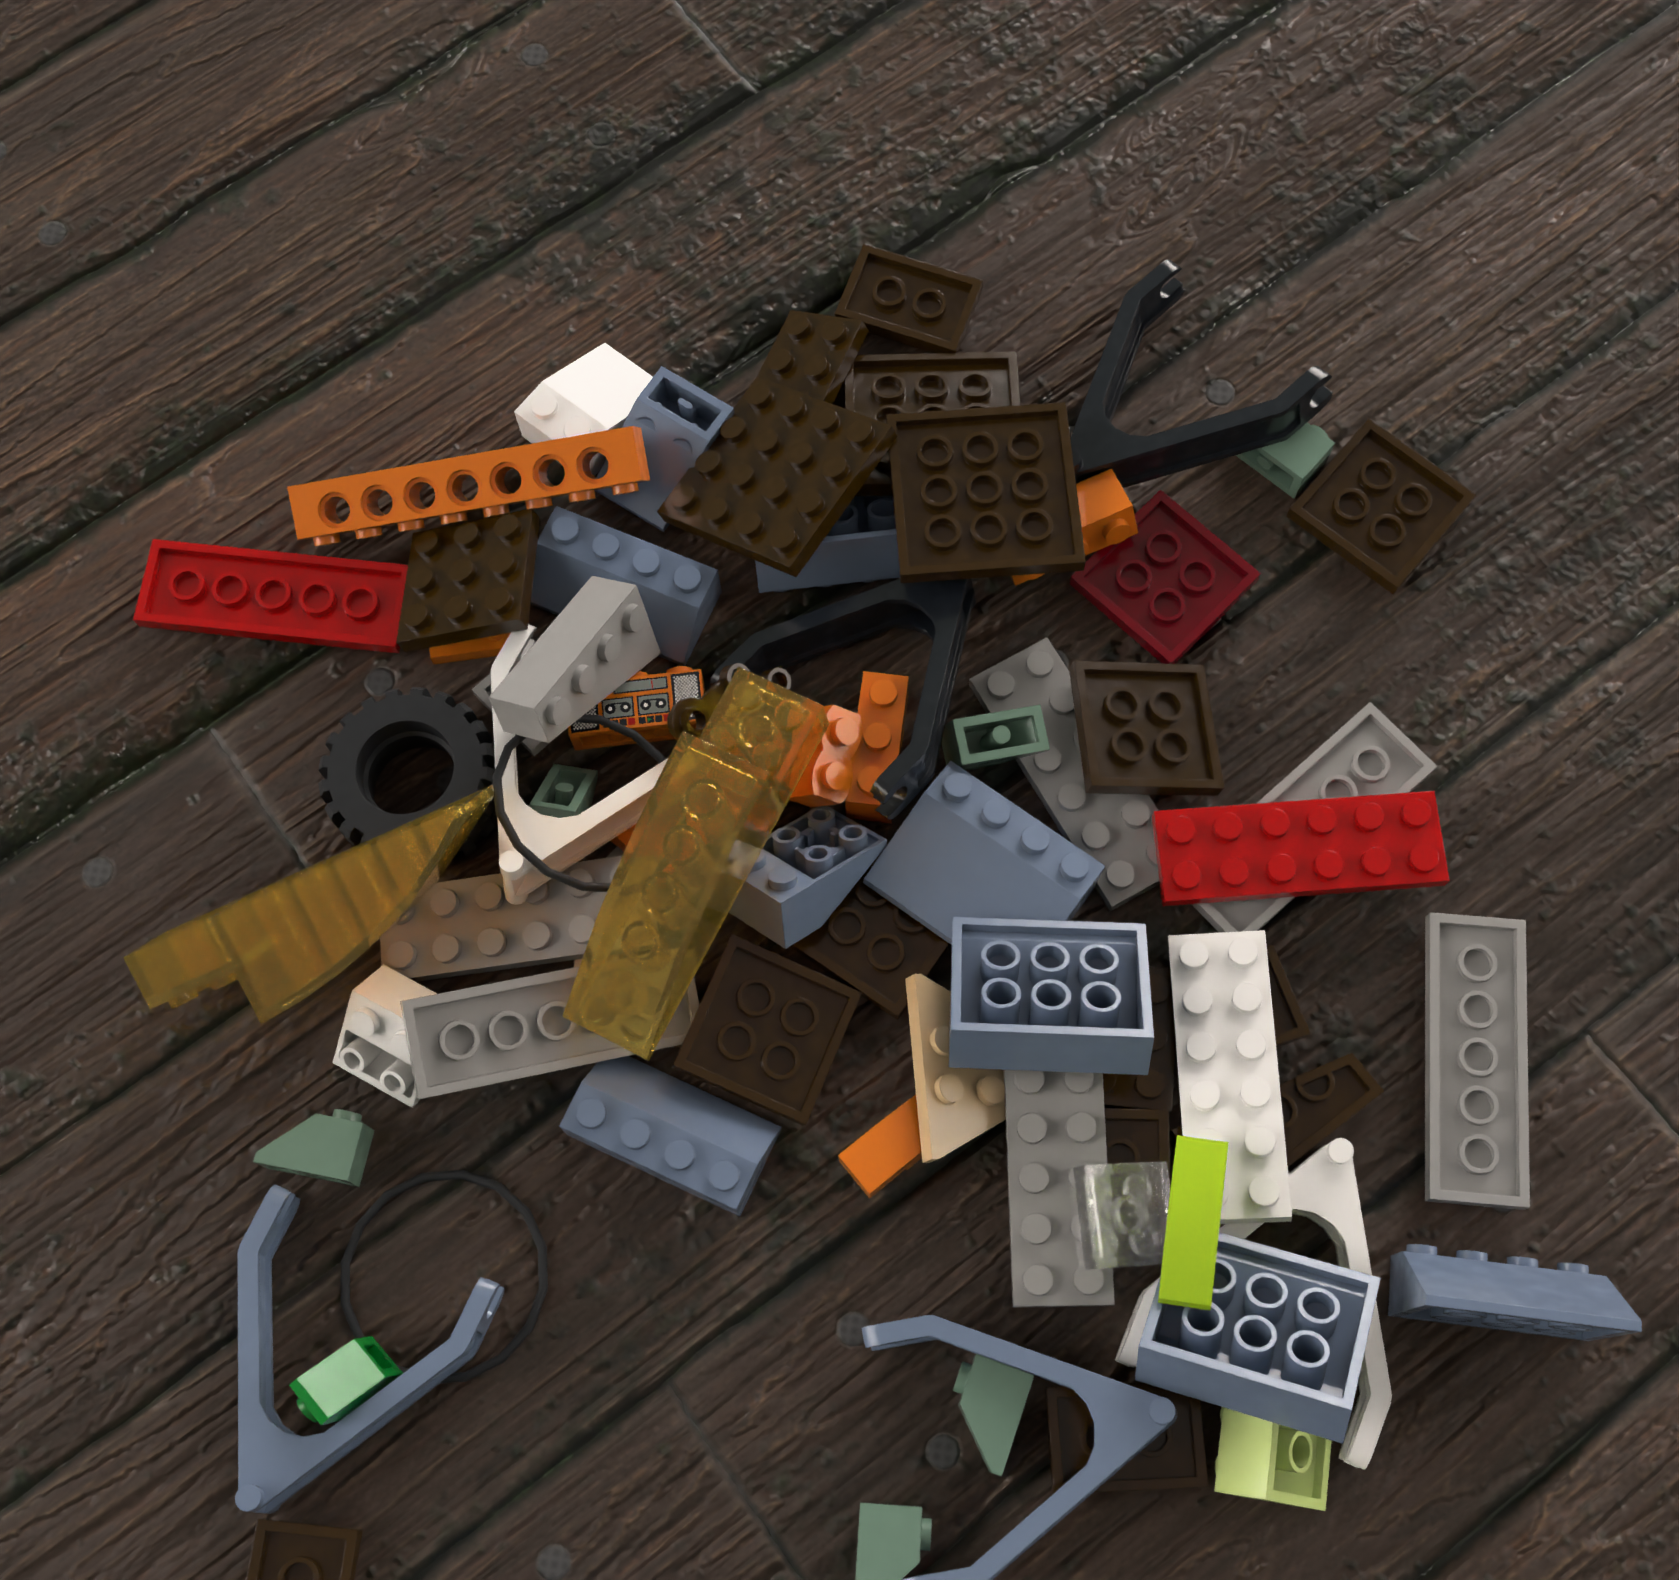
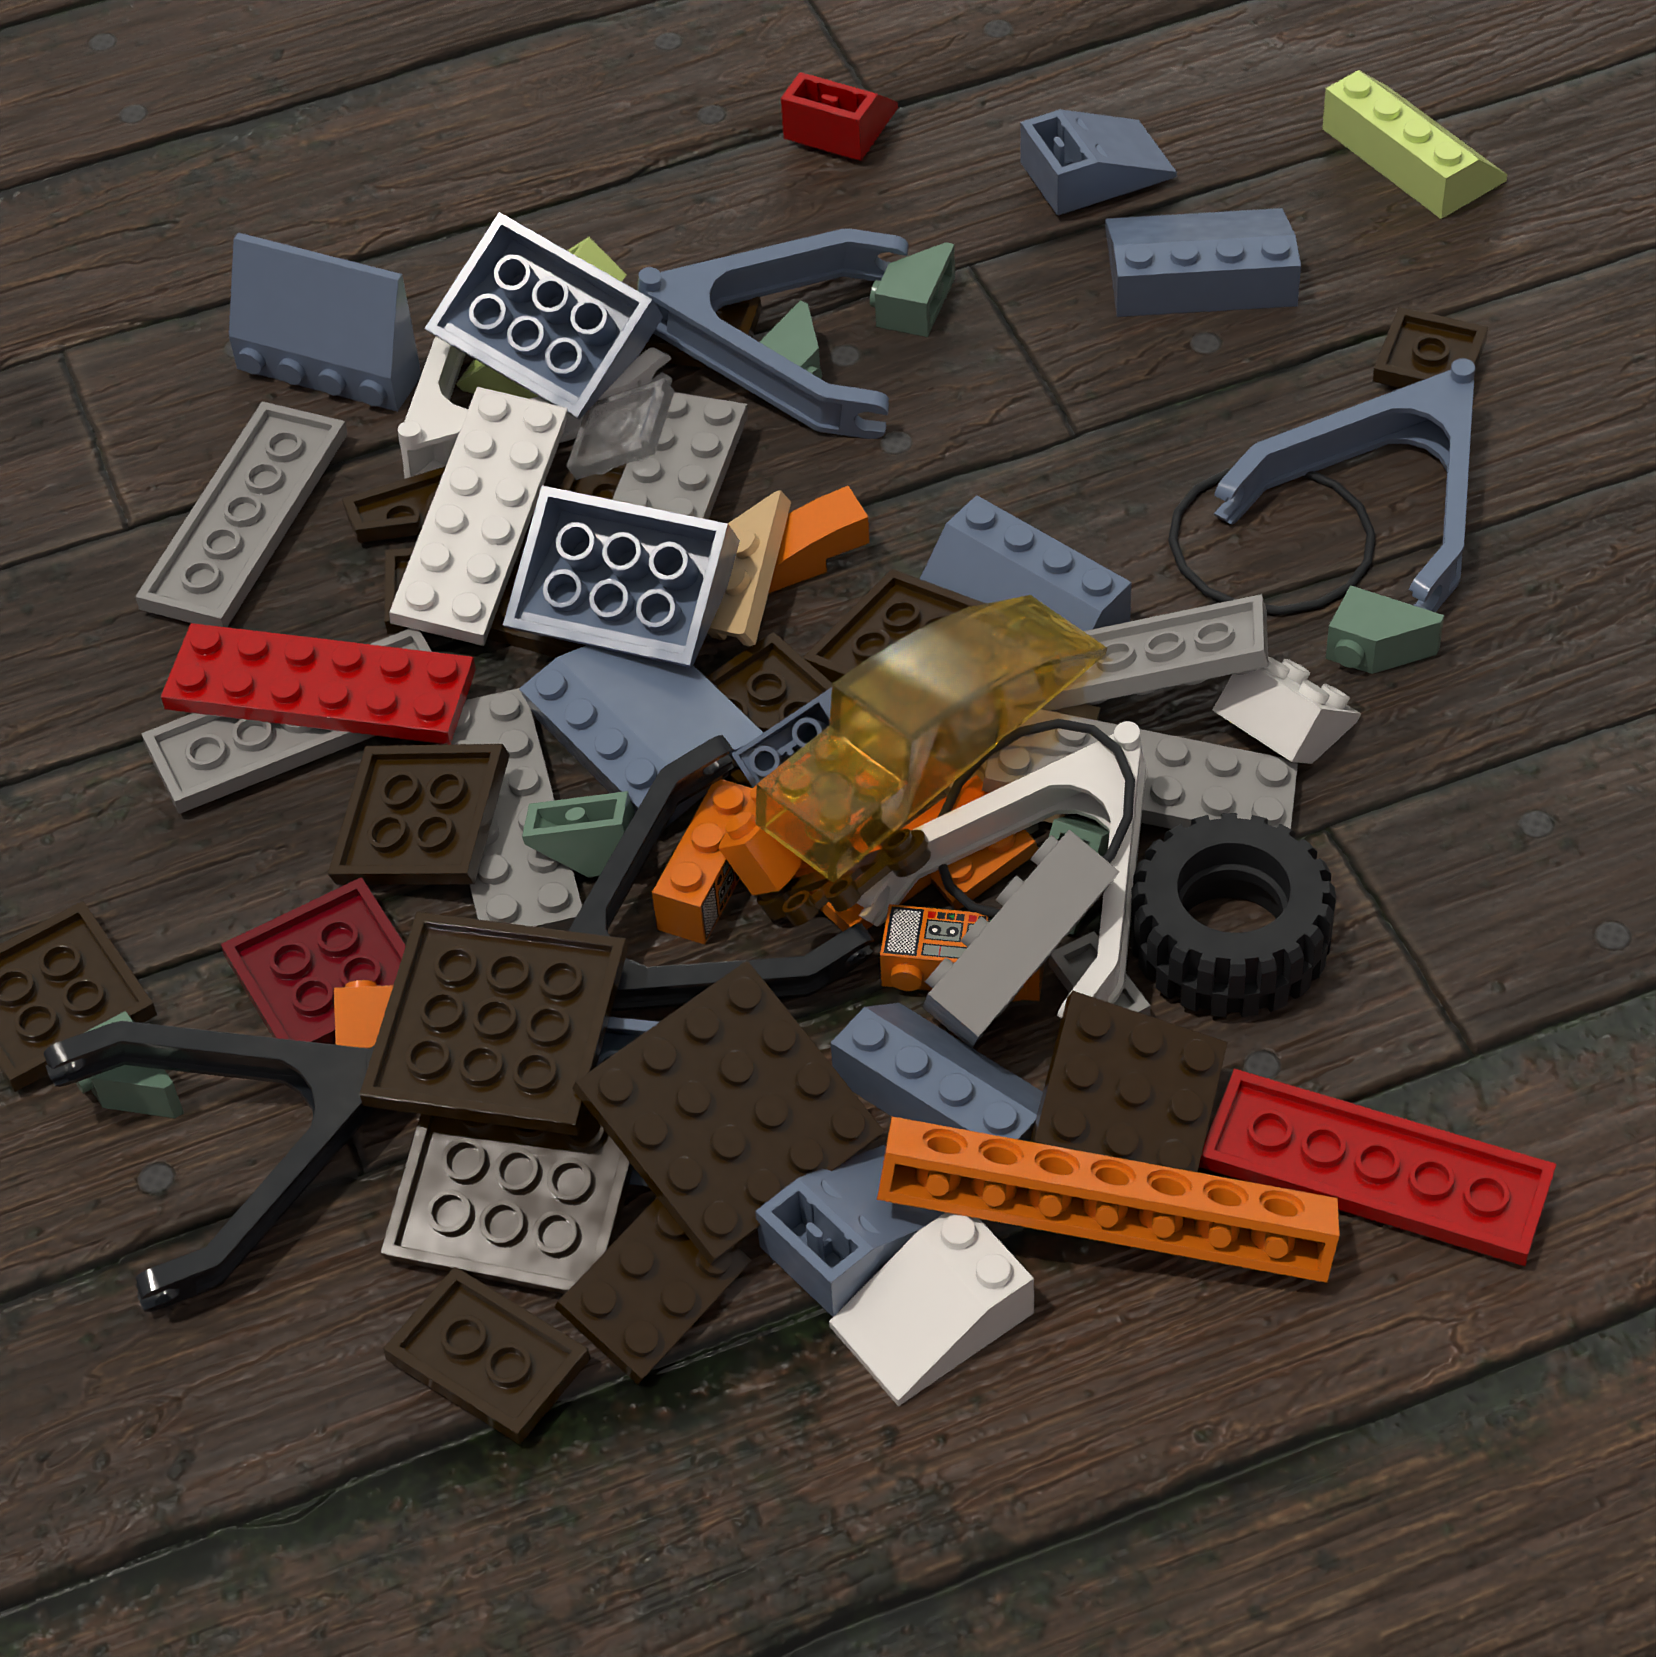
camera: 165 degrees left, 20 degrees down
(309, 924) = (1346, 764): clear yellow slope -> none
(344, 1380) = (1369, 448): slope -> none
(1193, 1223) = (564, 382): lime slope -> none

